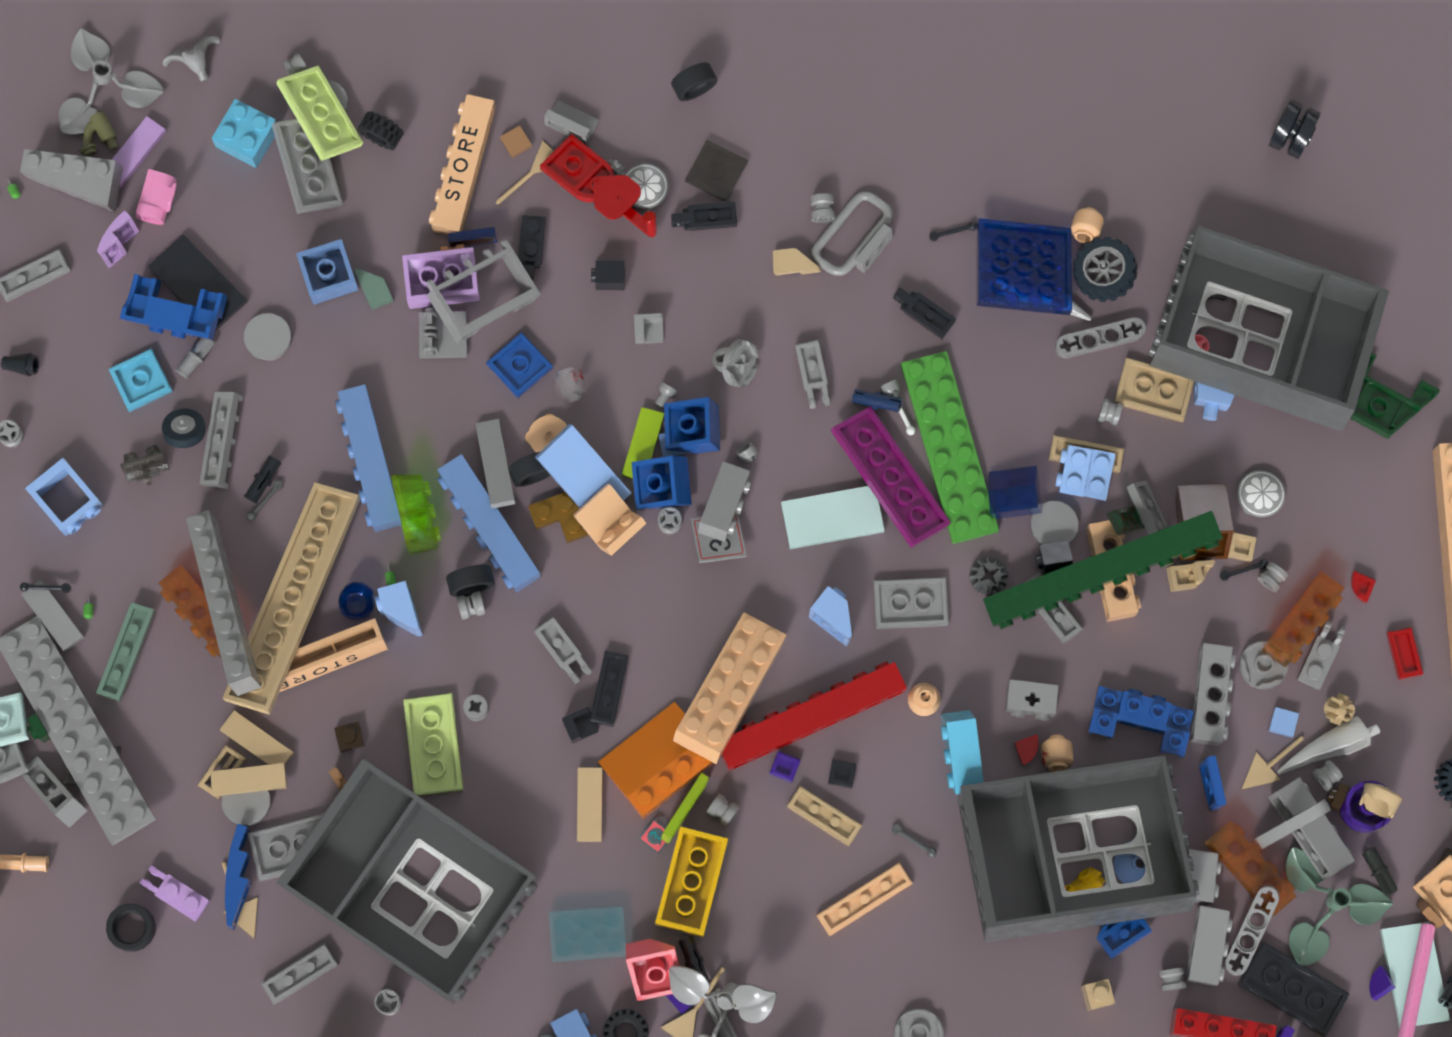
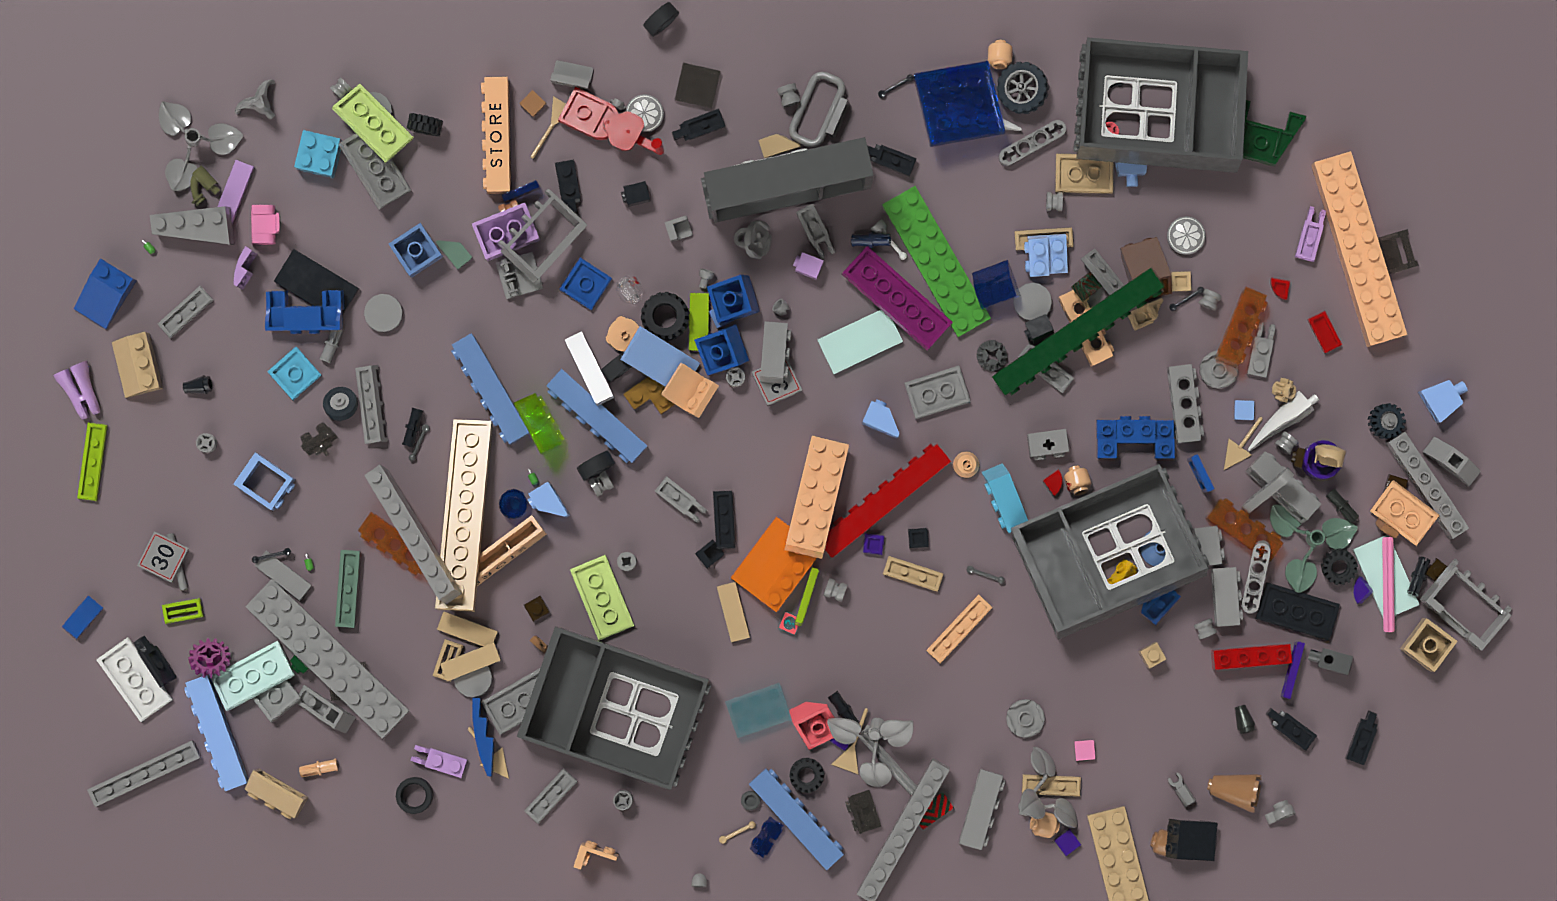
camera: 10 degrees left, 10 degrees up
(605, 406) = (677, 304): none -> black tyre
(691, 882) = (826, 651): yellow brick -> none
(793, 411) = (808, 265): none -> lavender brick
(794, 294) = (787, 180): none -> dark grey panel
(1365, 959) = (1329, 560): none -> black tyre
(1413, 534) = (1310, 236): none -> lavender hinge

